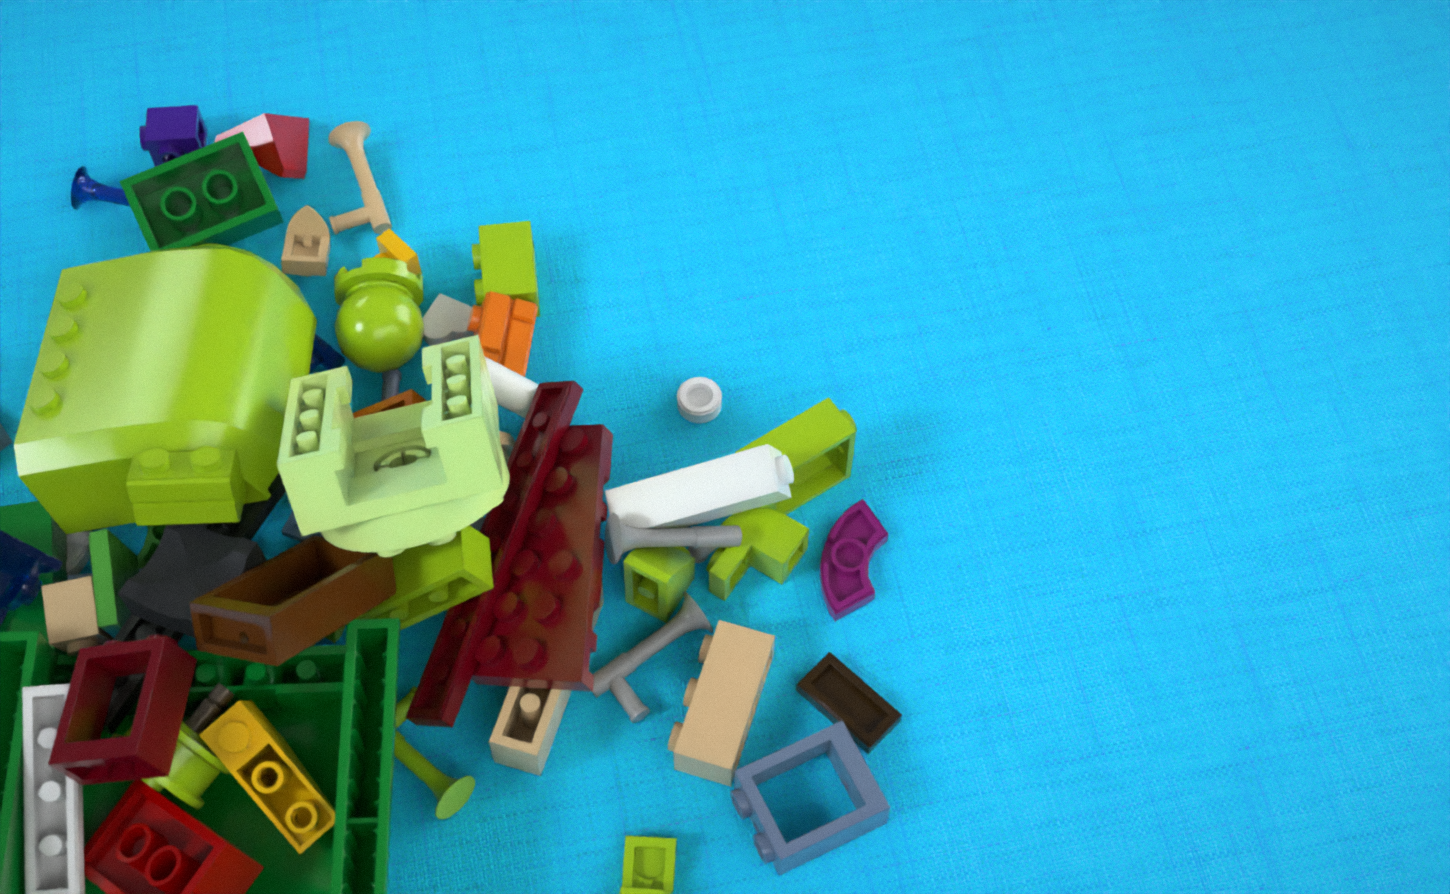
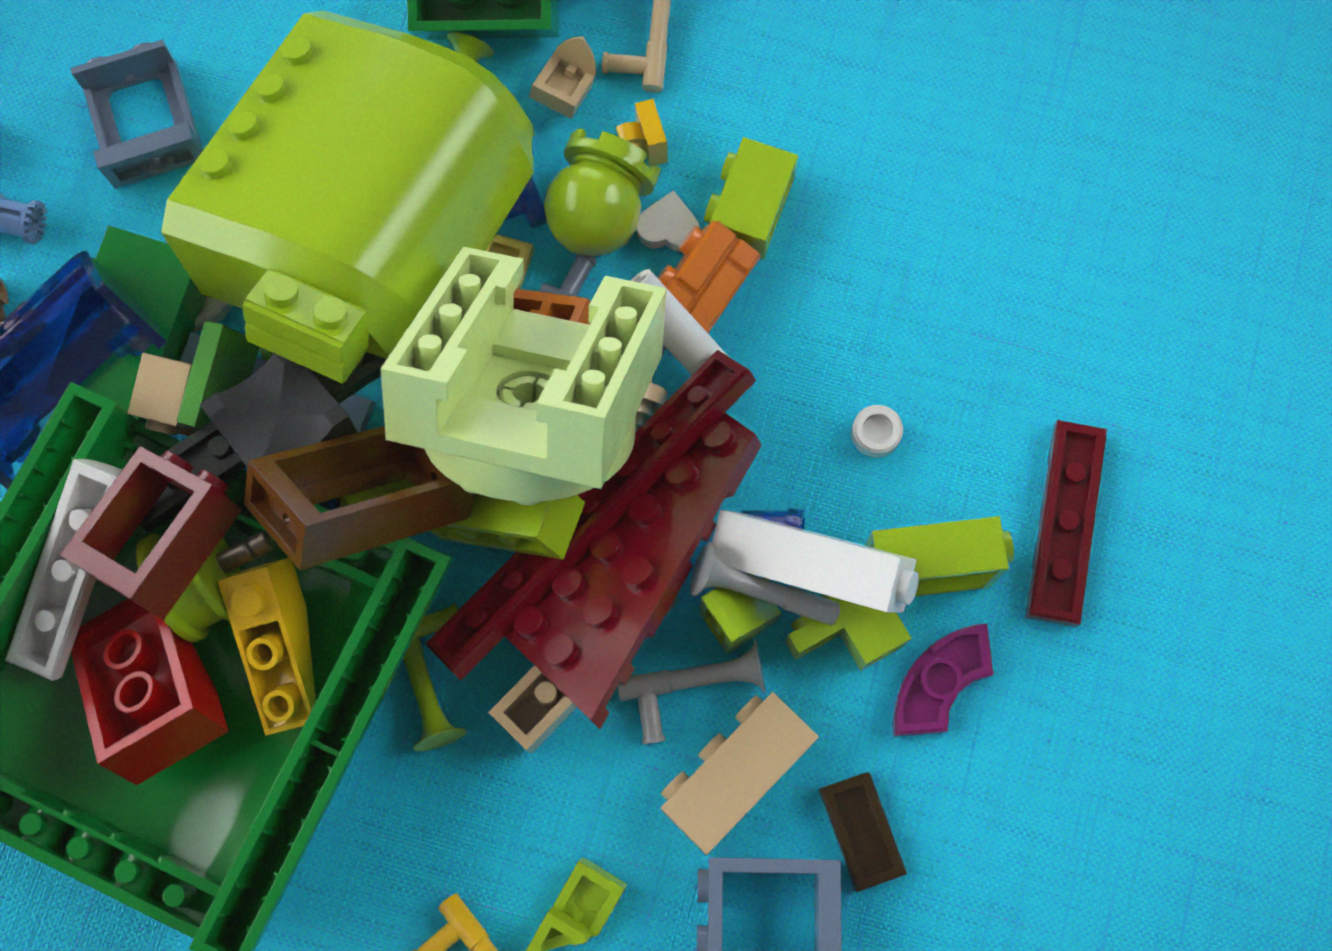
camera: 30 degrees right, 15 degrees up
(885, 401) = (1066, 524): none -> dark red tile

